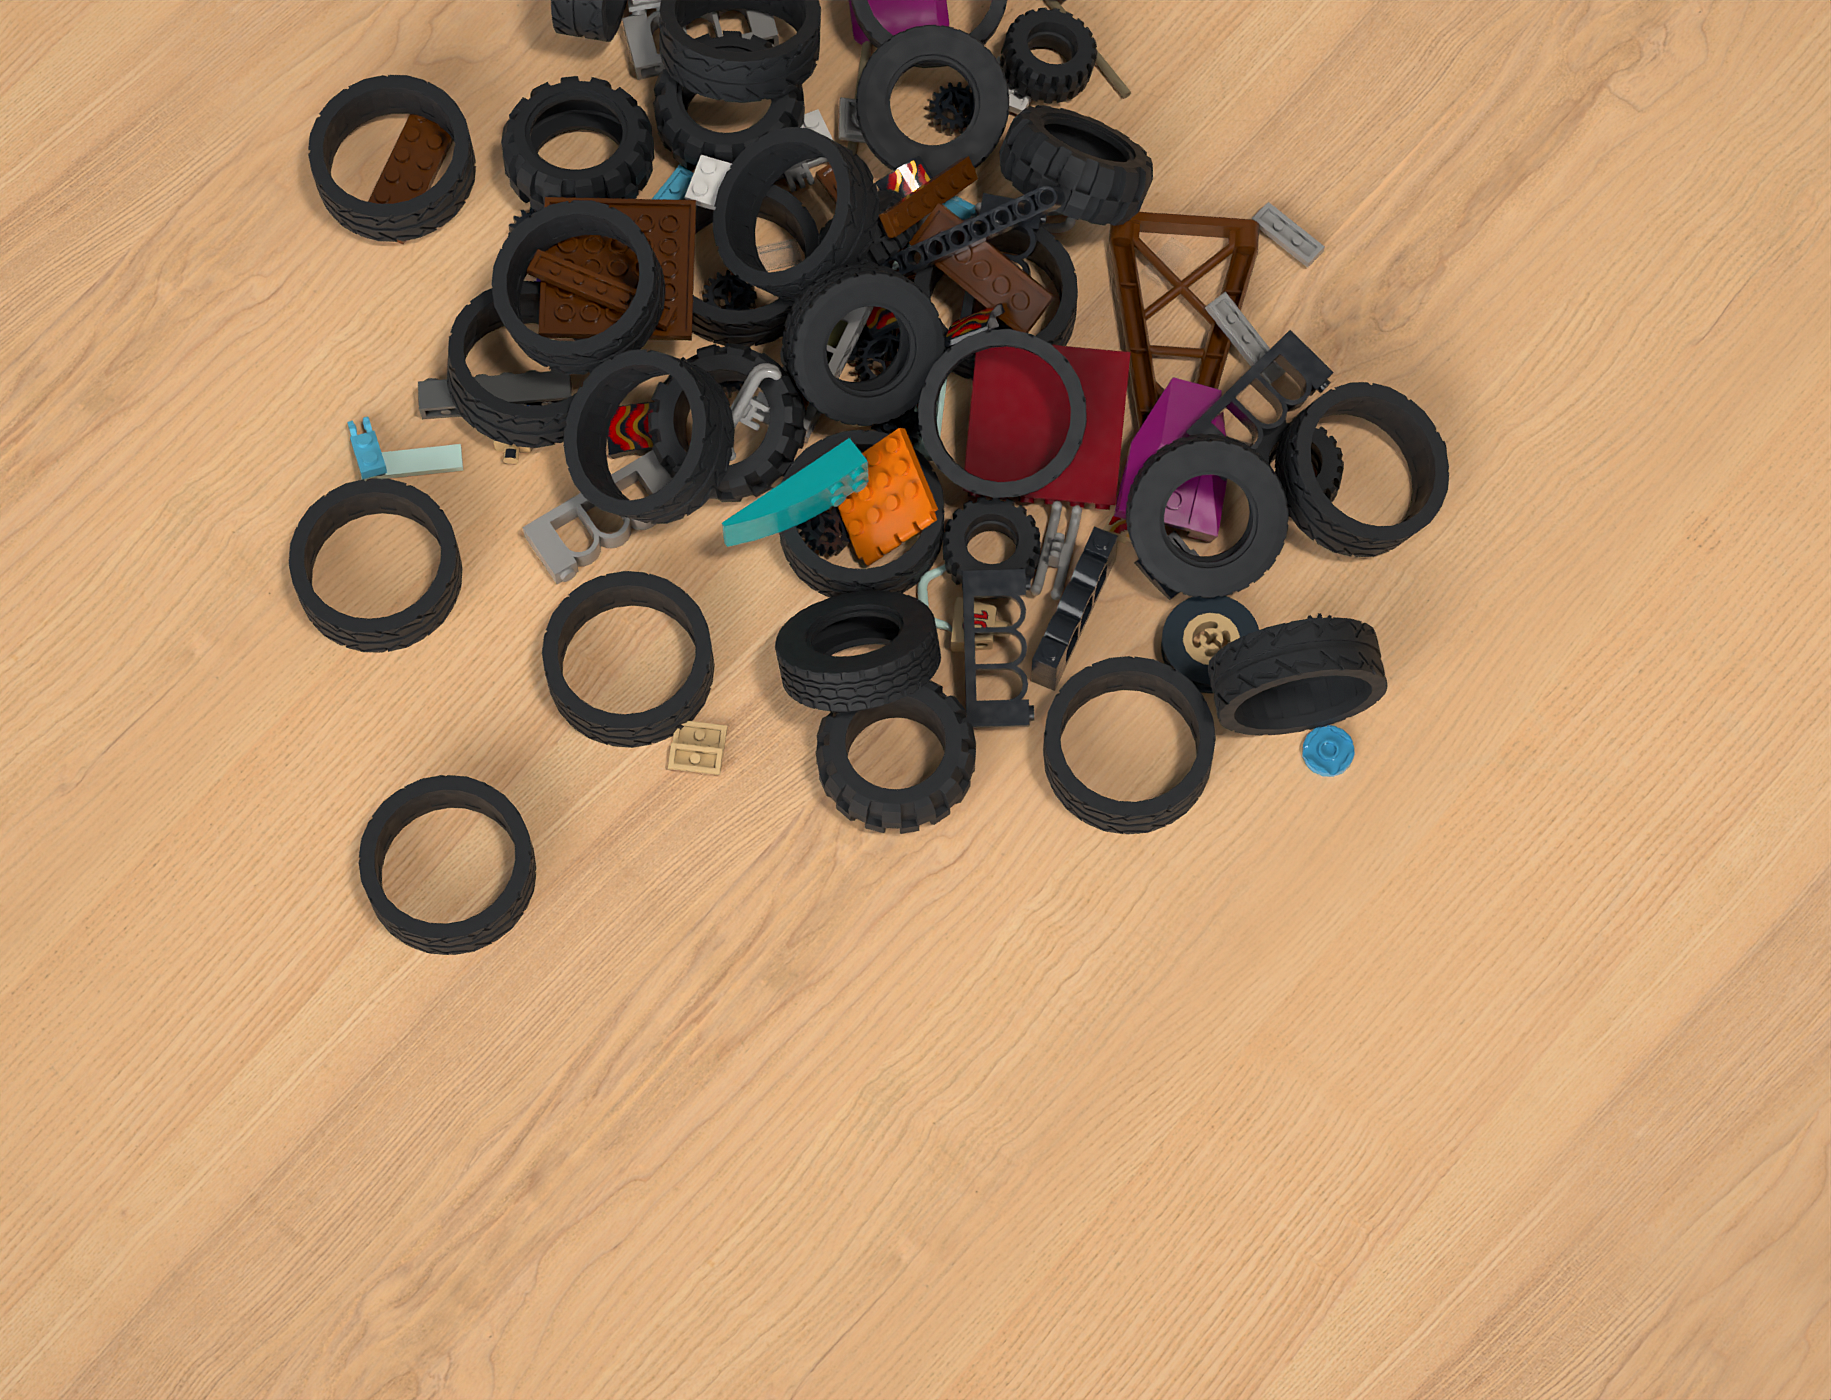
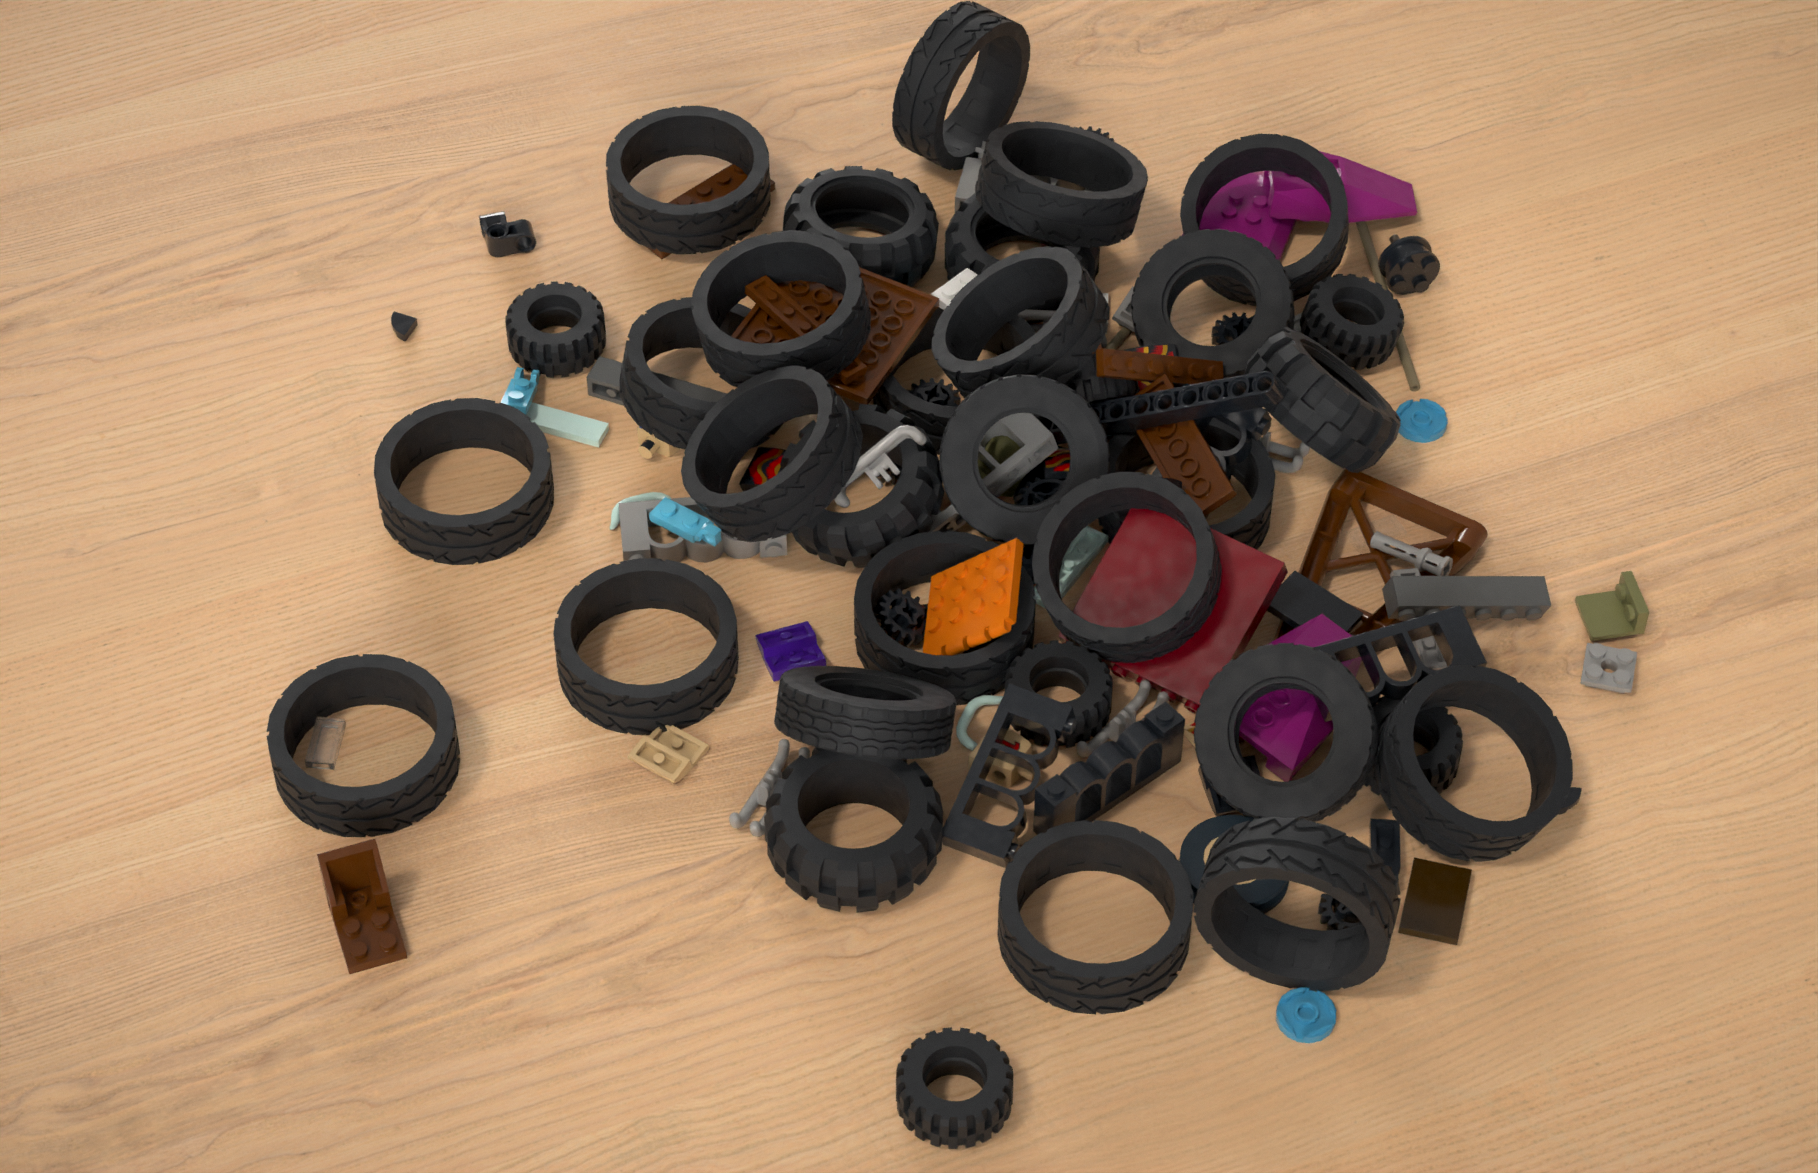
camera: 25 degrees right, 20 degrees down
(214, 421) = (403, 325): none -> black tile
(262, 282) = (506, 237): none -> black piece
(350, 342) = (556, 306): none -> black tyre
(406, 872) = (325, 743): none -> clear tile
(532, 508) = (615, 518): none -> light aqua animal
(536, 1016) = (361, 906): none -> reddish brown bracket
(592, 522) = (685, 522): none -> medium azure hinge
(744, 602) = (789, 649): none -> dark purple slope
(801, 496) = (884, 558): teal slope -> none
(802, 747) = (763, 789): none -> light grey piece
(1097, 916) = (954, 1121): none -> black tyre
(1148, 126) = (1422, 420): none -> dark azure tile
(1154, 366) = (1302, 600): none -> black tile
(1223, 279) = (1422, 561): none -> light grey pin
(1277, 302) = (1477, 595): none -> dark grey brick
(1288, 235) = (1511, 550): light grey plate -> none
(1320, 574) = (1385, 842): none -> black hinge
(1379, 597) = (1435, 901): none -> dark brown tile
(1394, 255) = (1614, 612): none -> olive bracket
(1419, 302) = (1603, 657): none -> light grey piece

